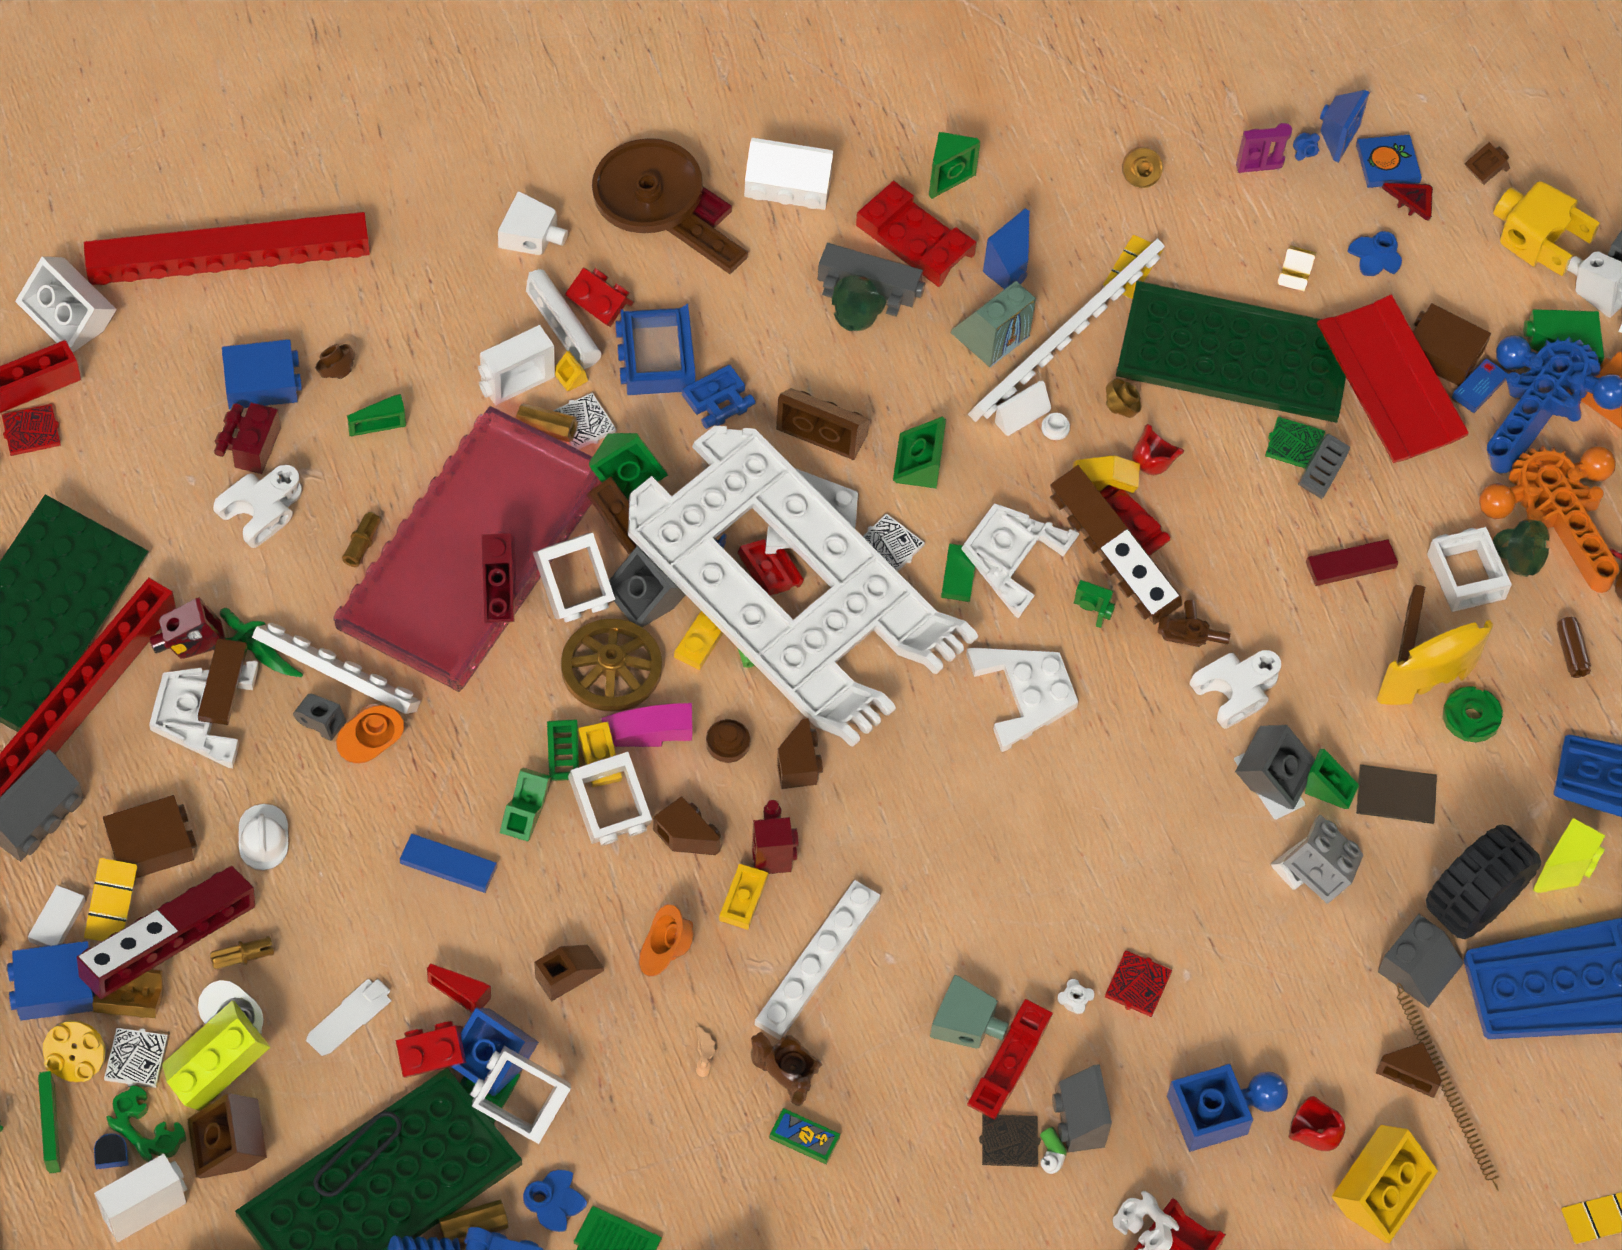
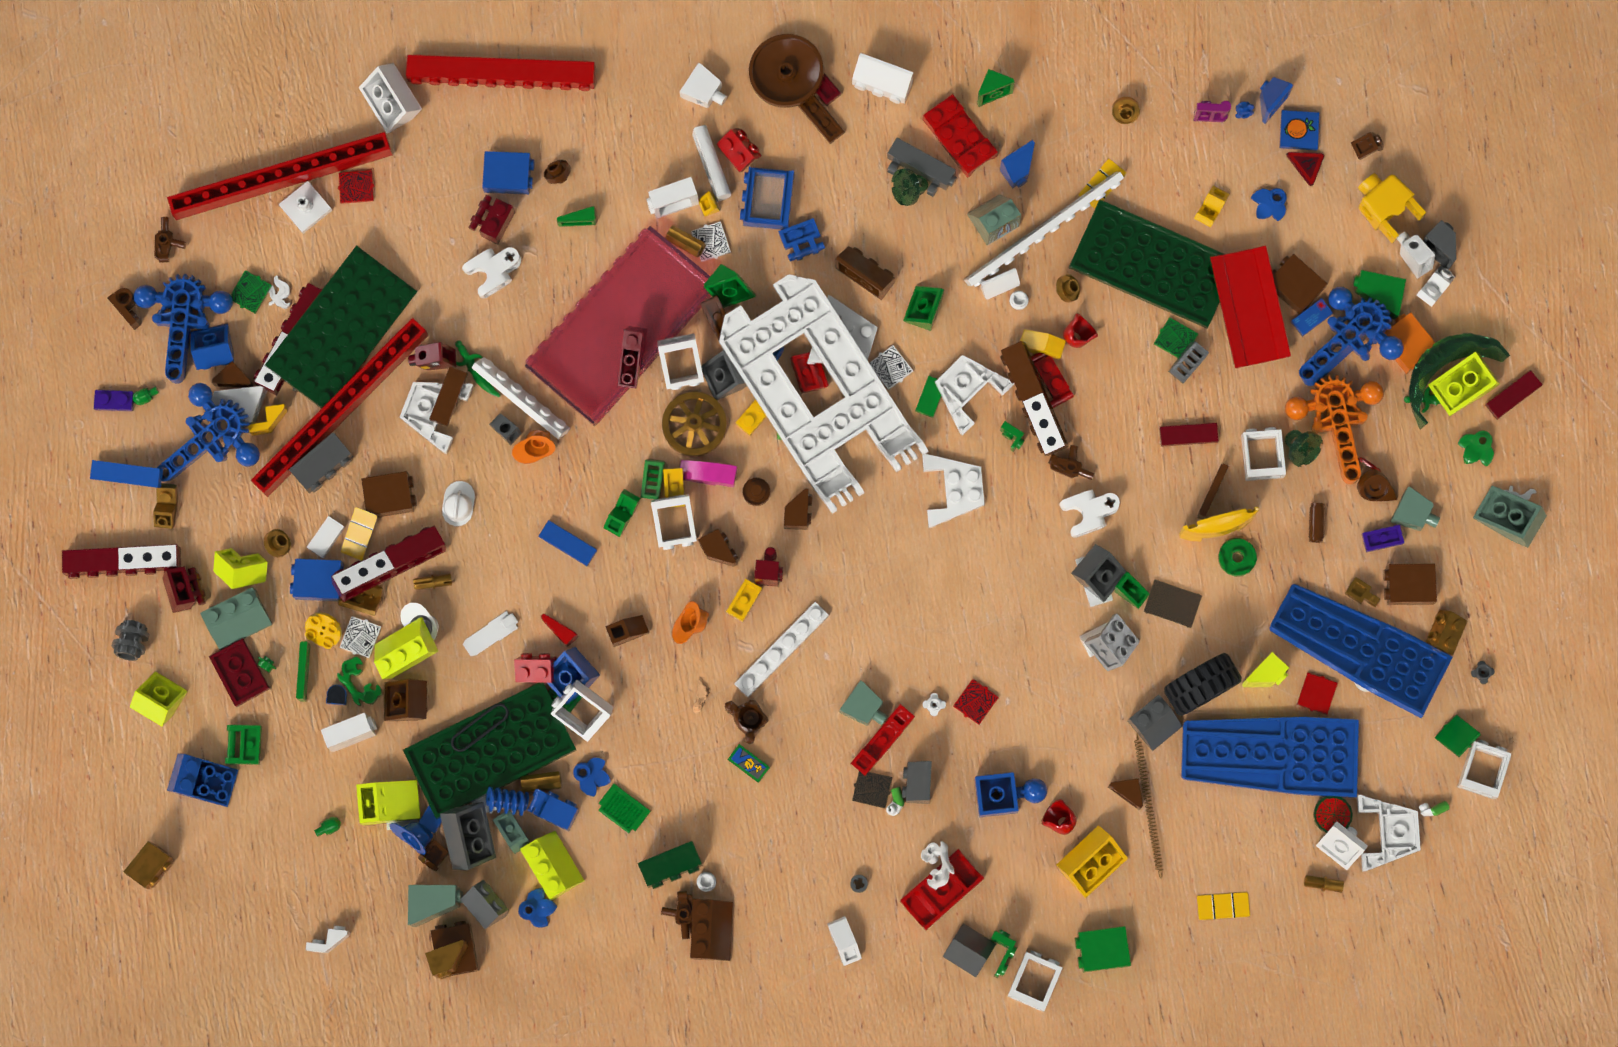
camera: 20 degrees right, 20 degrees up
(361, 539) = (552, 306): pearl gold axle -> none

